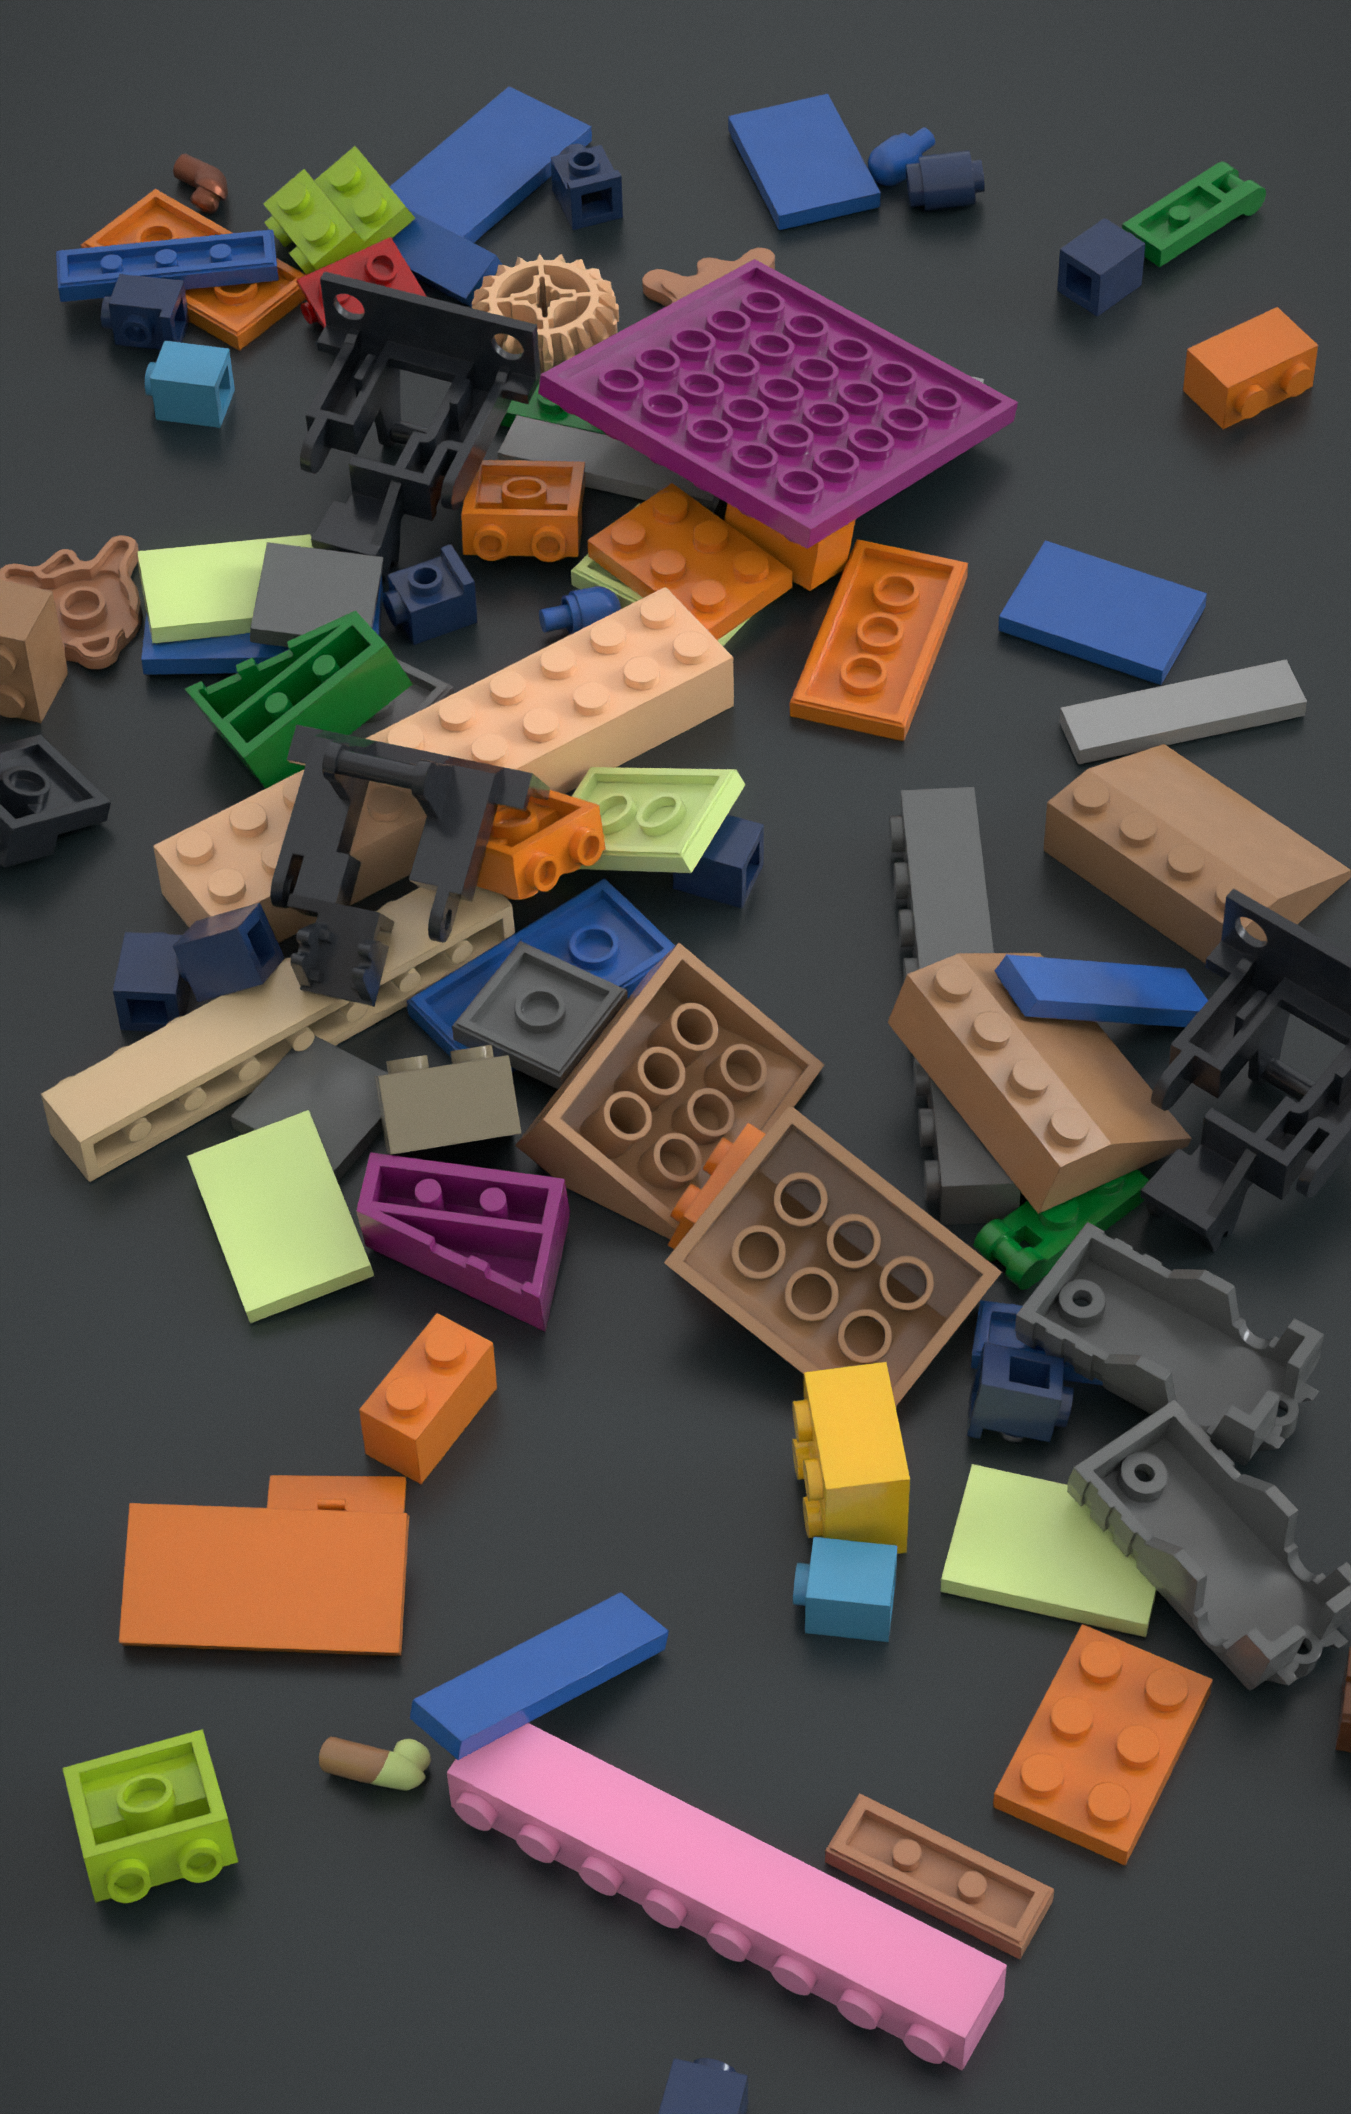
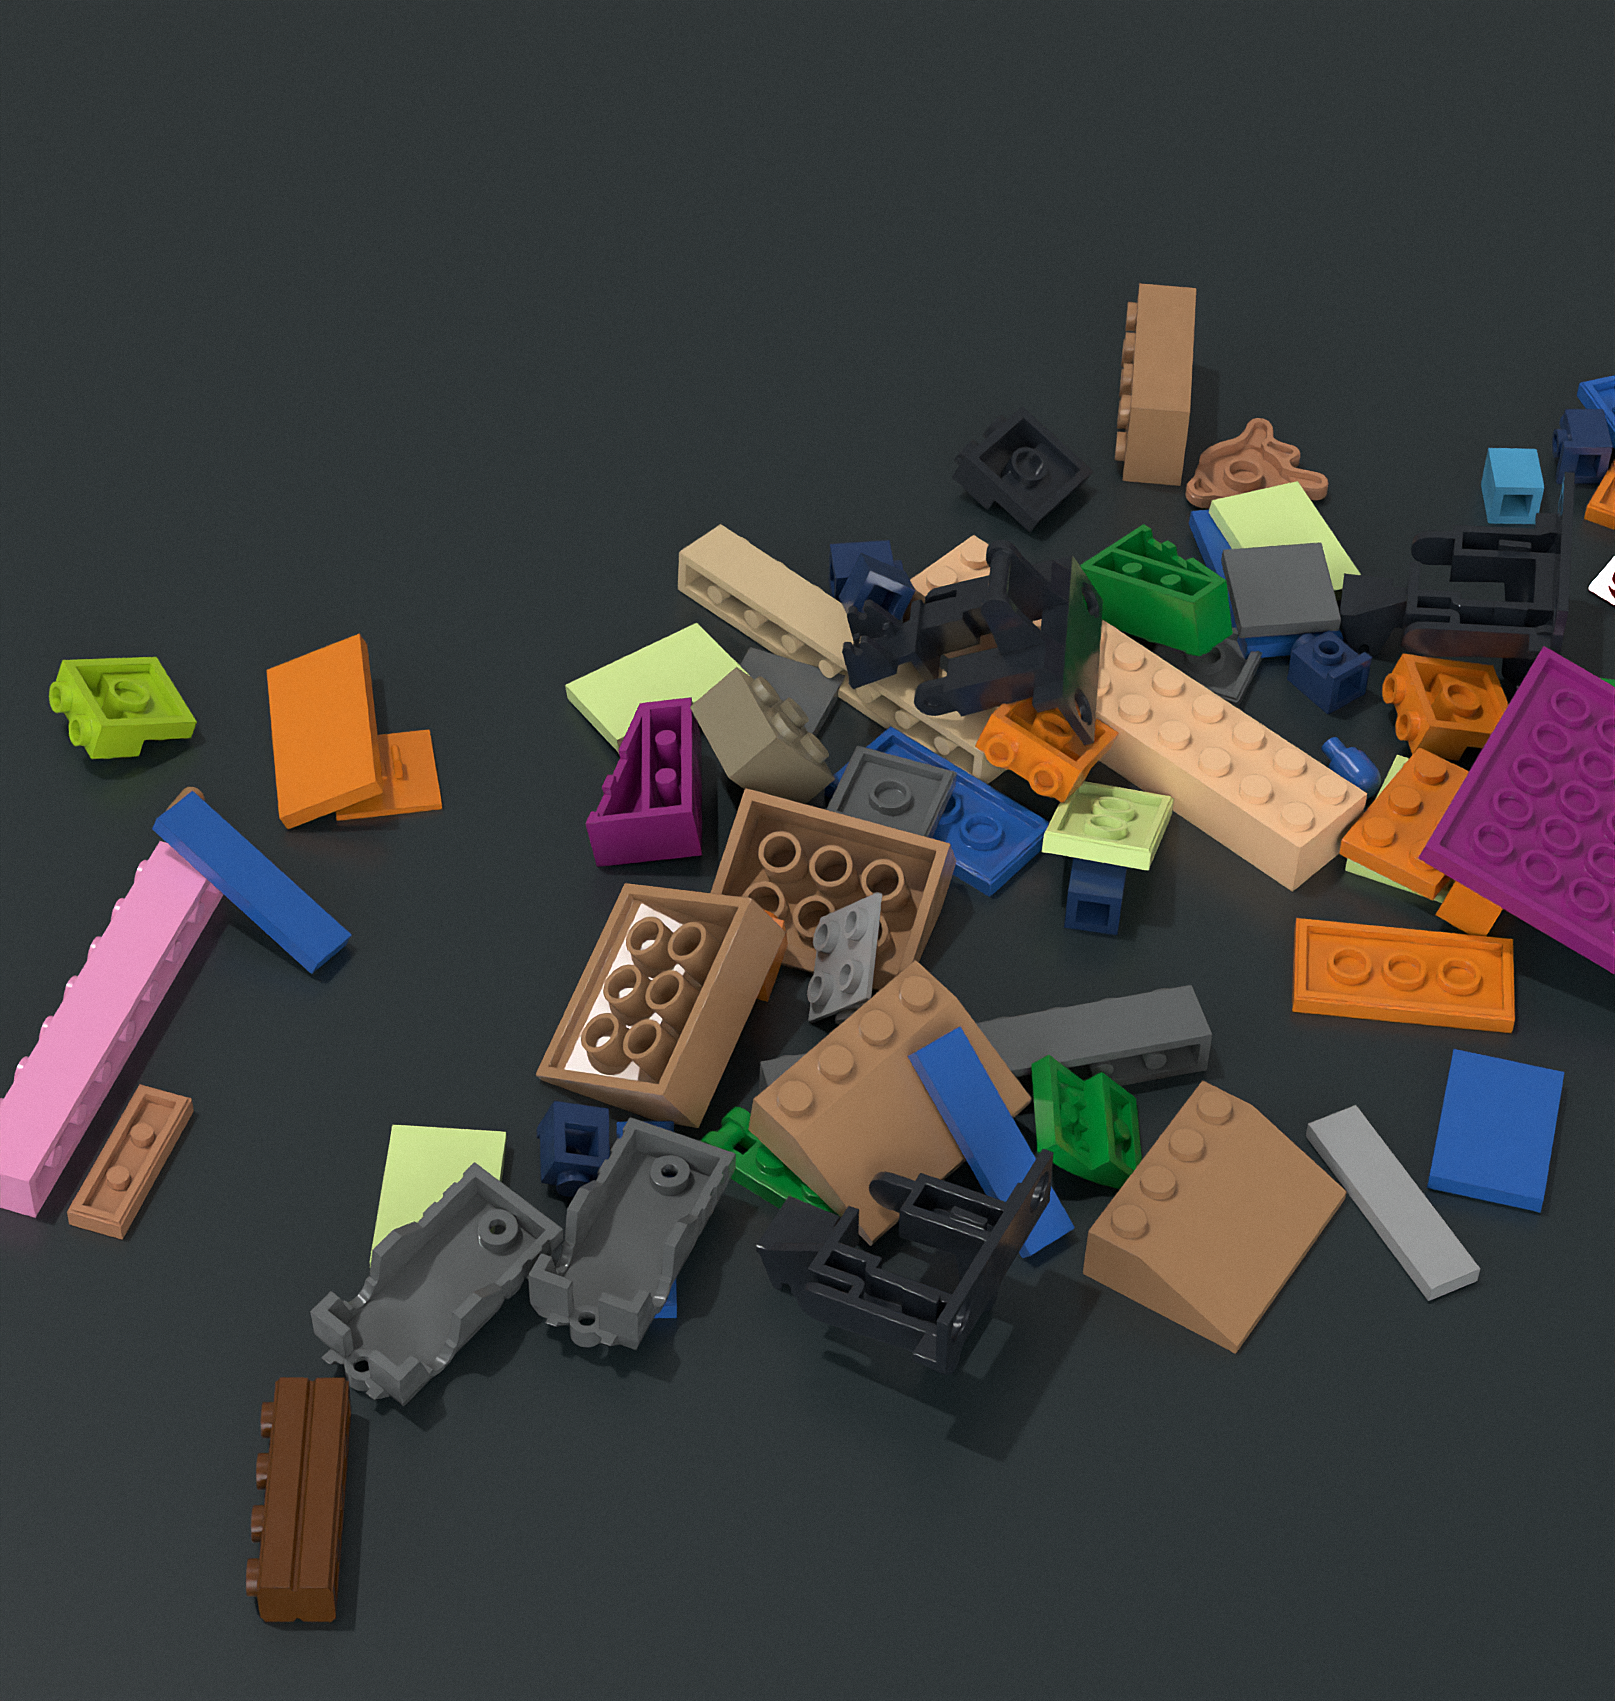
camera: 75 degrees right, 5 degrees down
(428, 1398) = (499, 792): orange brick -> none
(813, 1067) = (844, 960): none -> light grey hinge
(847, 1589) = (369, 1066): dark azure brick -> none
(852, 1456) = (471, 1038): yellow brick -> none
(1061, 924) = (1086, 1123): none -> green slope
(1103, 1744) = (260, 1249): orange plate -> none

